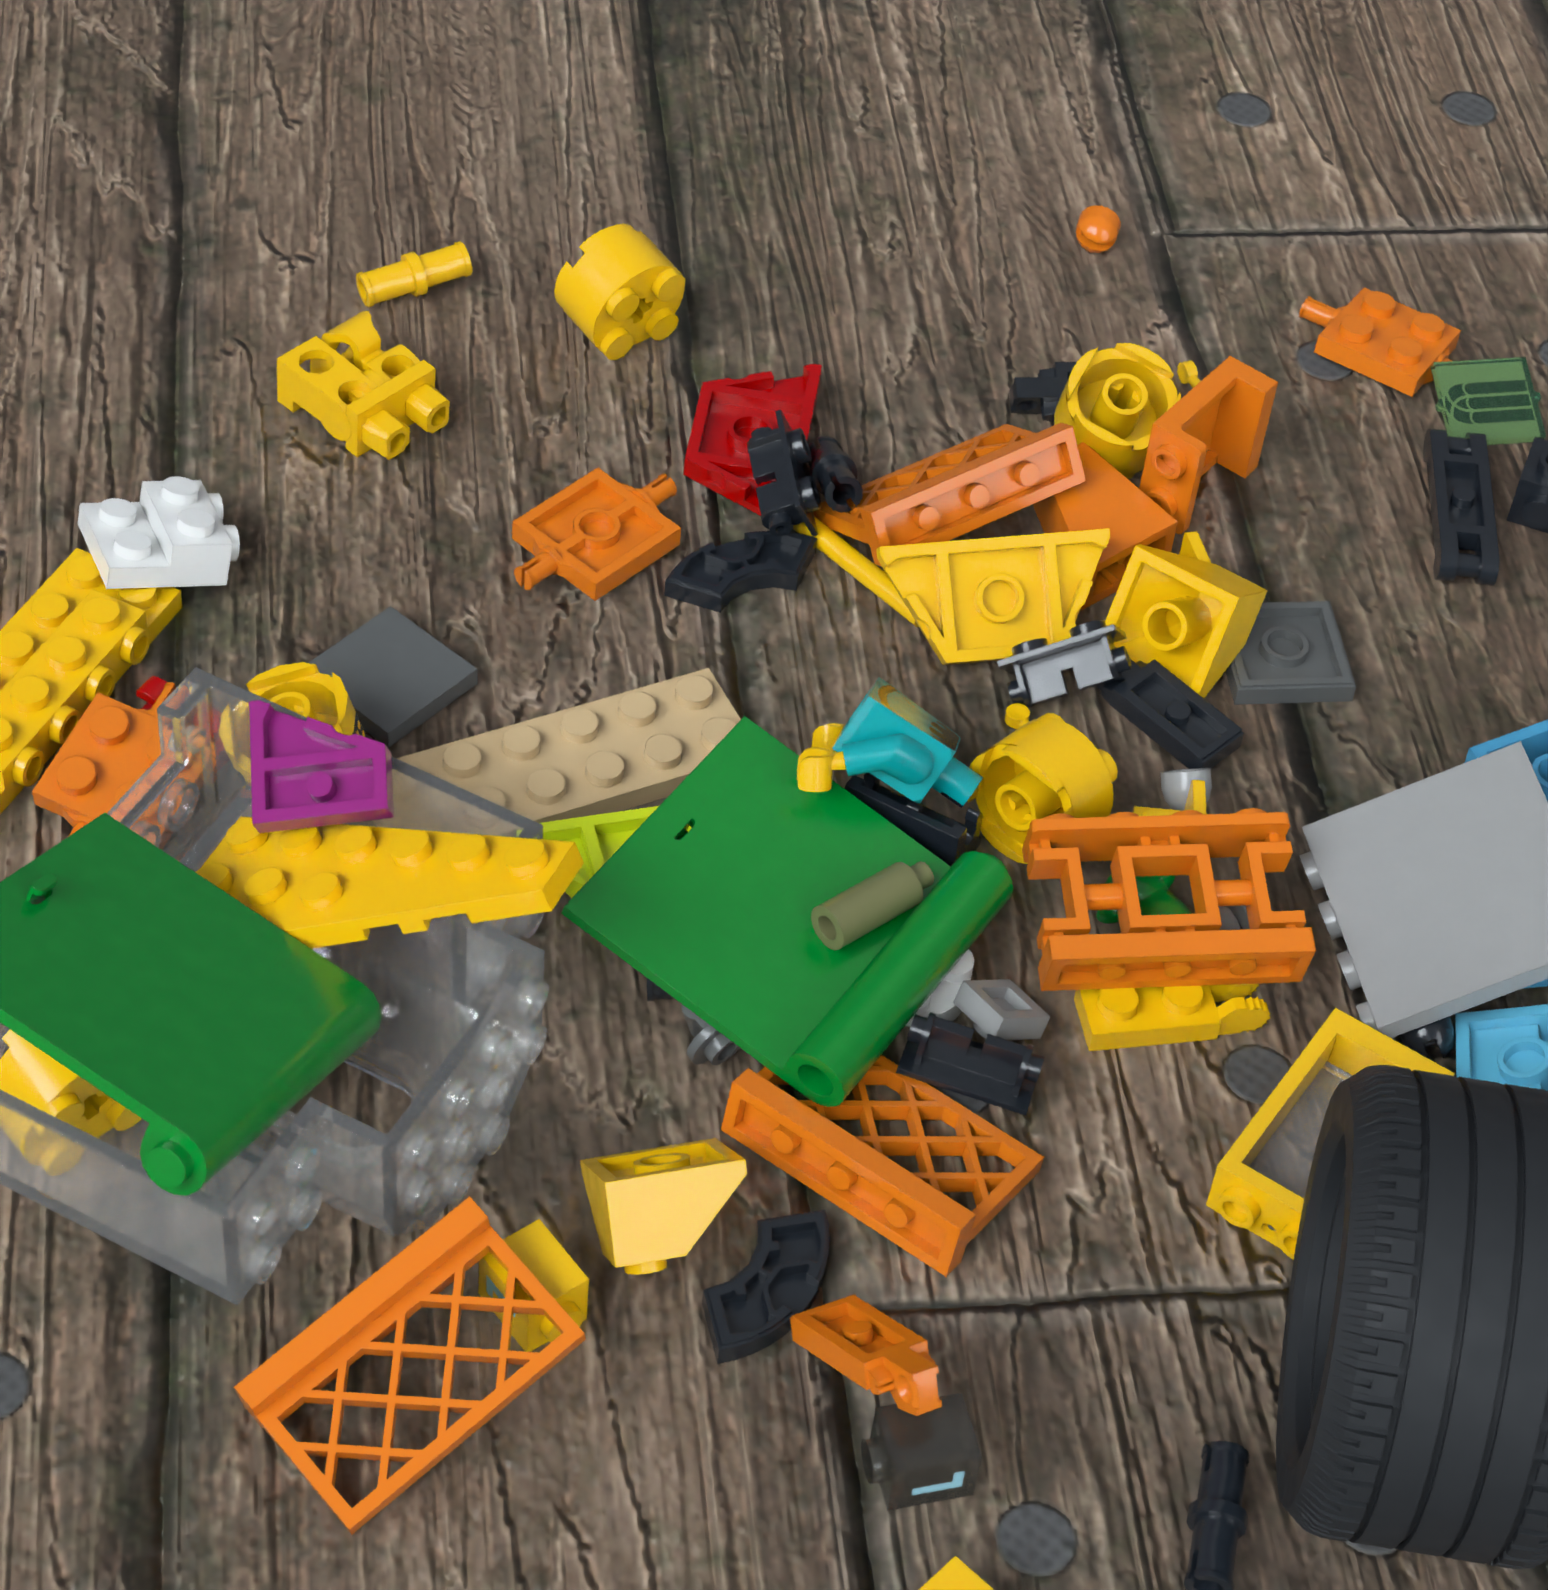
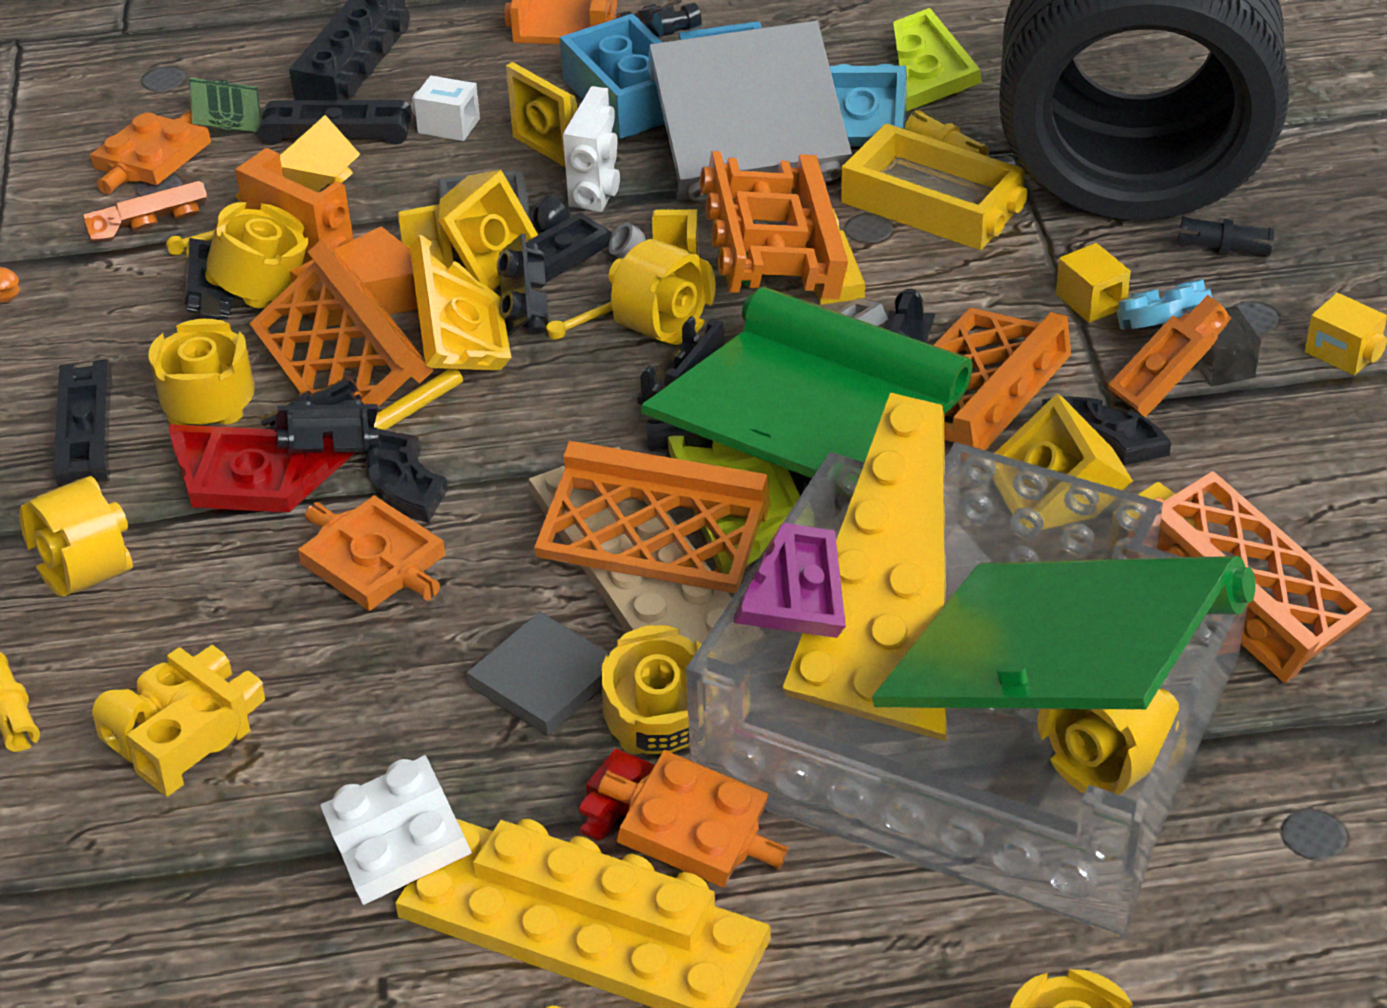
camera: 85 degrees left, 5 degrees down
(636, 755) = (663, 485): none -> orange fence
(849, 306) = (83, 422): none -> black plate
(870, 903) = (804, 351): olive cylinder -> none
(893, 743) = (640, 344): teal torso -> none
(903, 382) = (202, 373): none -> yellow brick
(1002, 1375) = (1150, 309): none -> medium azure plate
(1086, 1306) = (1092, 282): none -> yellow brick
(1242, 335) = (143, 211): none -> hinge
(1250, 708) = (548, 213): none -> black hinge
(1336, 467) = (318, 157): none -> yellow slope
(1359, 730) = (591, 153): none -> white plate
(1462, 694) = (539, 112): none -> yellow slope
(1490, 607) = (446, 108): none -> white brick

